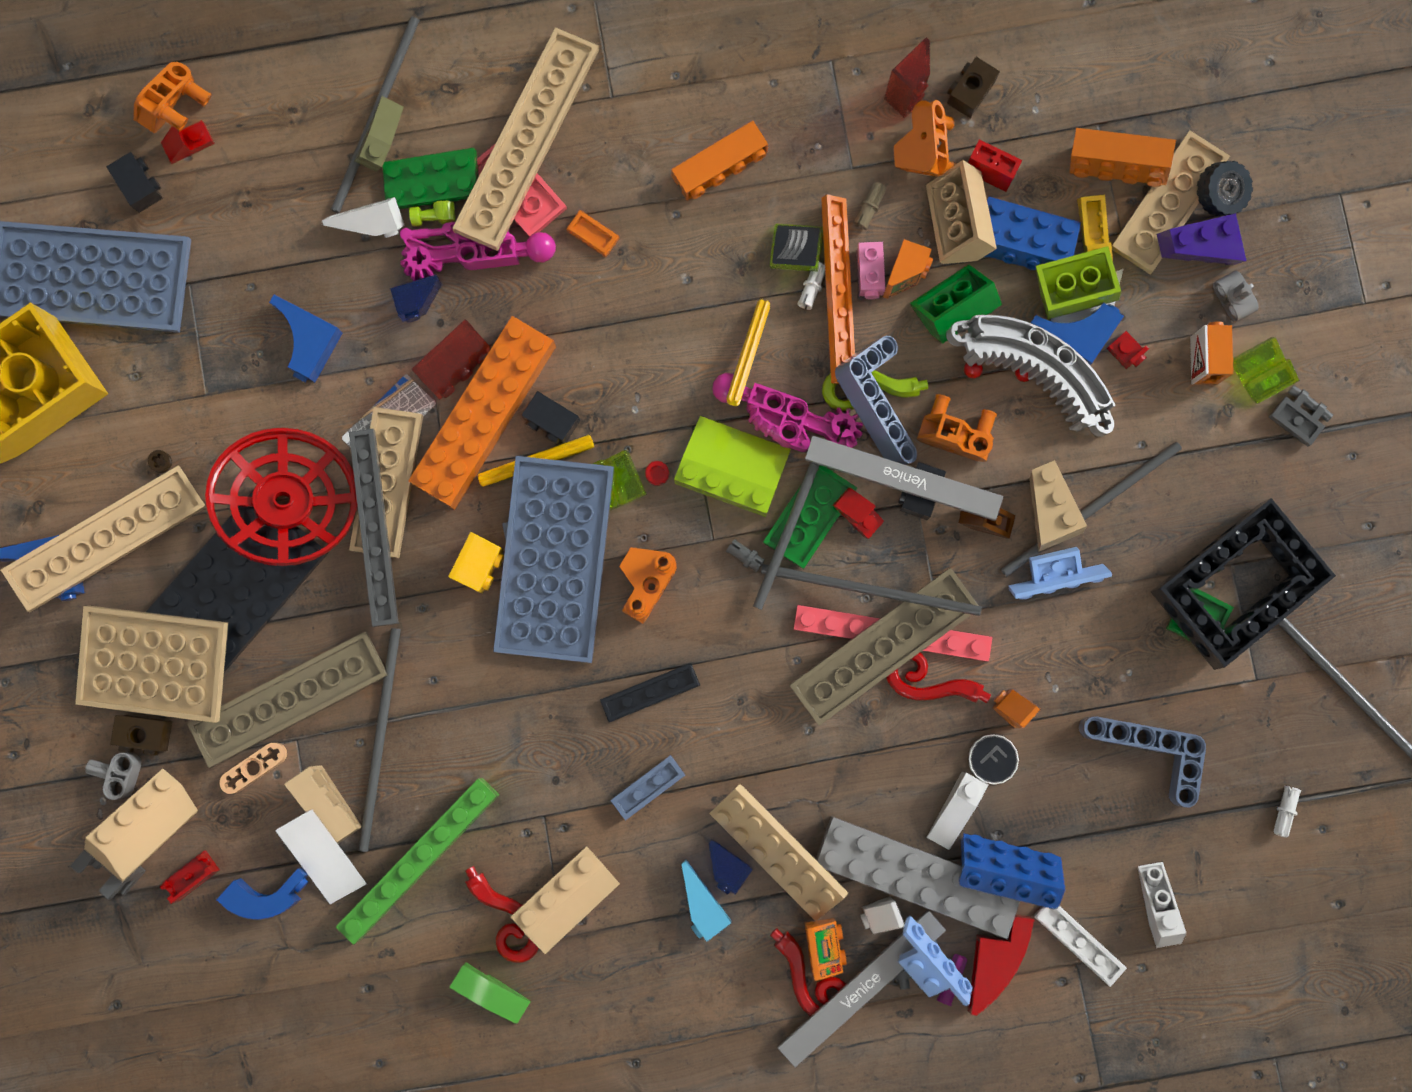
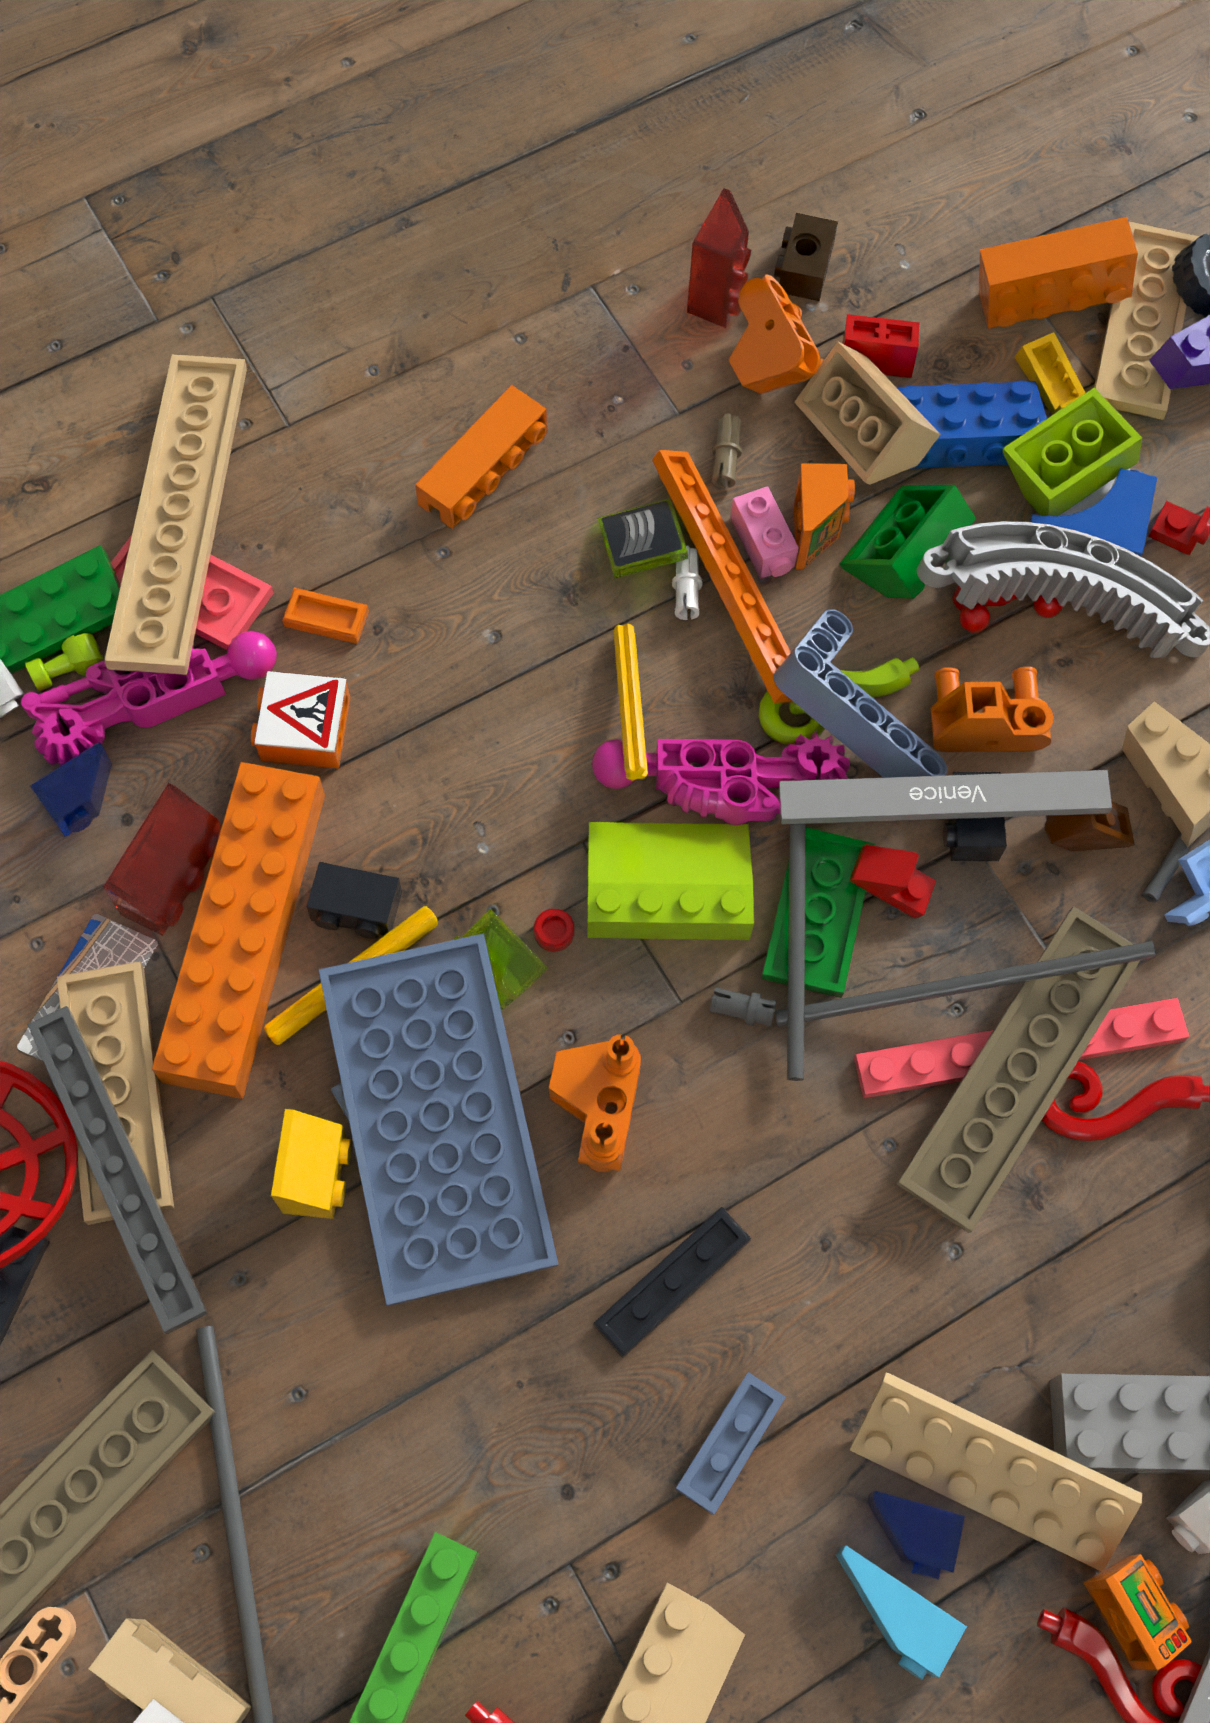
camera: 25 degrees left, 15 degrees down
(556, 297) = (301, 719): none -> piece

